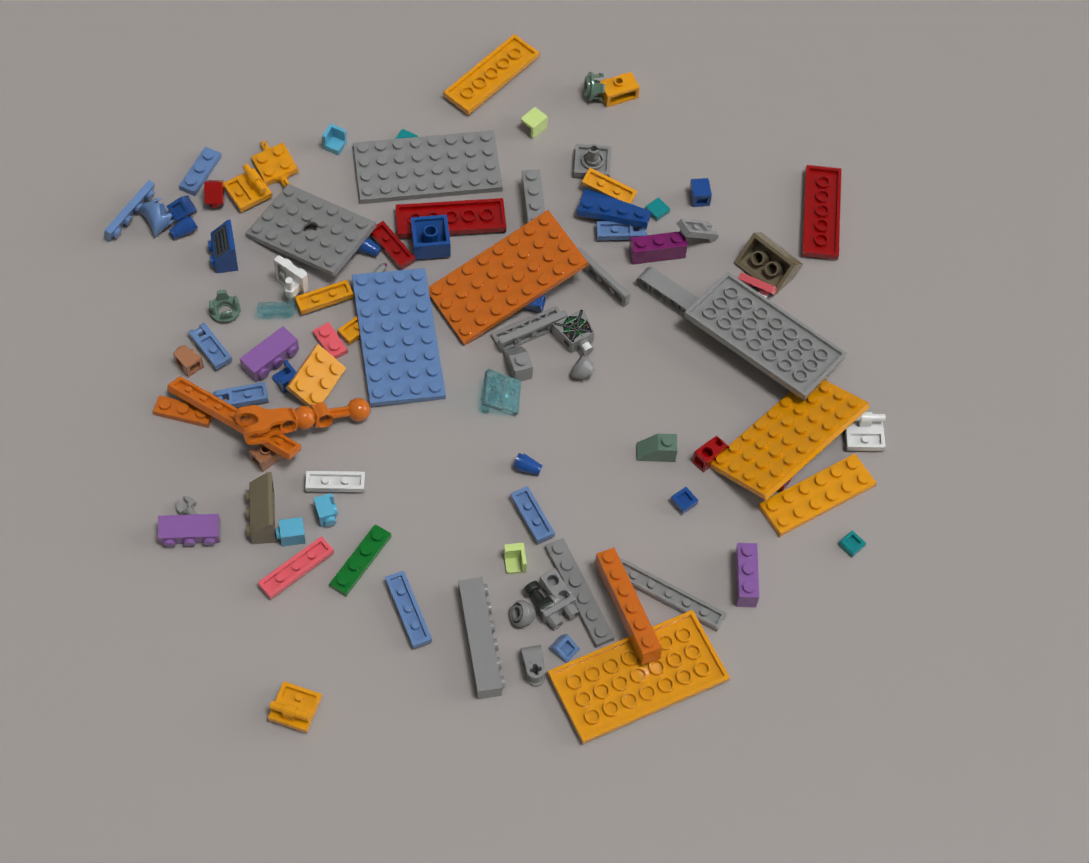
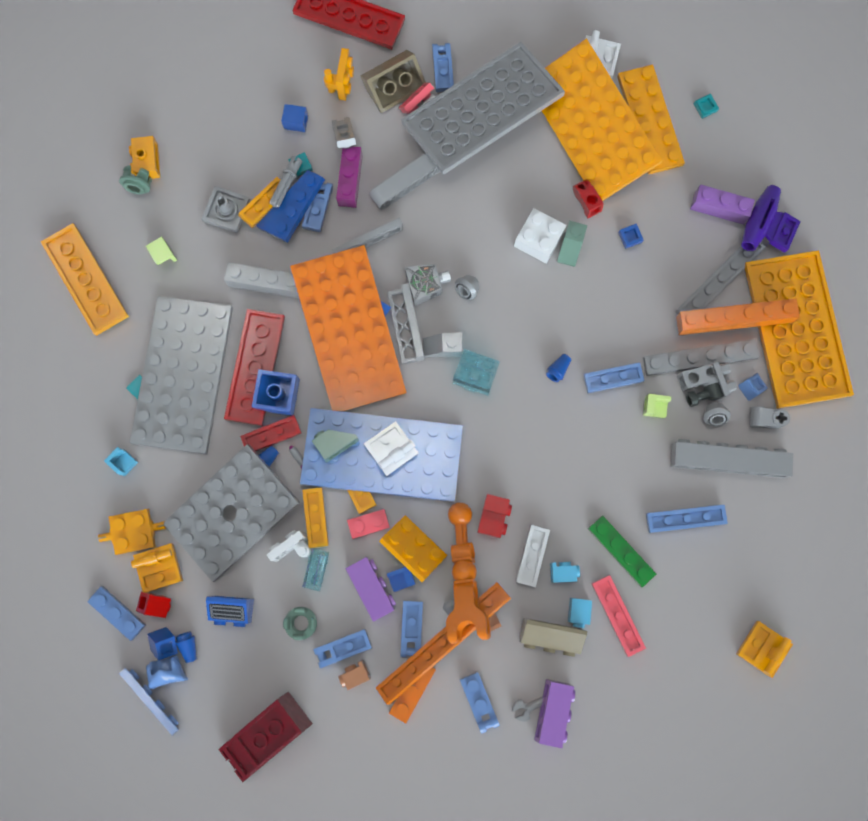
camera: 70 degrees left, 20 degrees up
(120, 301) = (265, 736): none -> dark red piece
(185, 468) = (479, 701): none -> medium blue plate
(364, 439) = (493, 516): none -> red brick
(393, 286) = (333, 443): none -> sand green slope
(403, 335) = (391, 448): none -> white plate
(633, 197) = (285, 182): none -> light grey axle
(654, 416) = (539, 235): none -> white brick
(742, 622) = (767, 222): none -> dark purple plate
(754, 216) = (340, 80): none -> light orange plate
(801, 299) = (442, 67): none -> medium blue plate

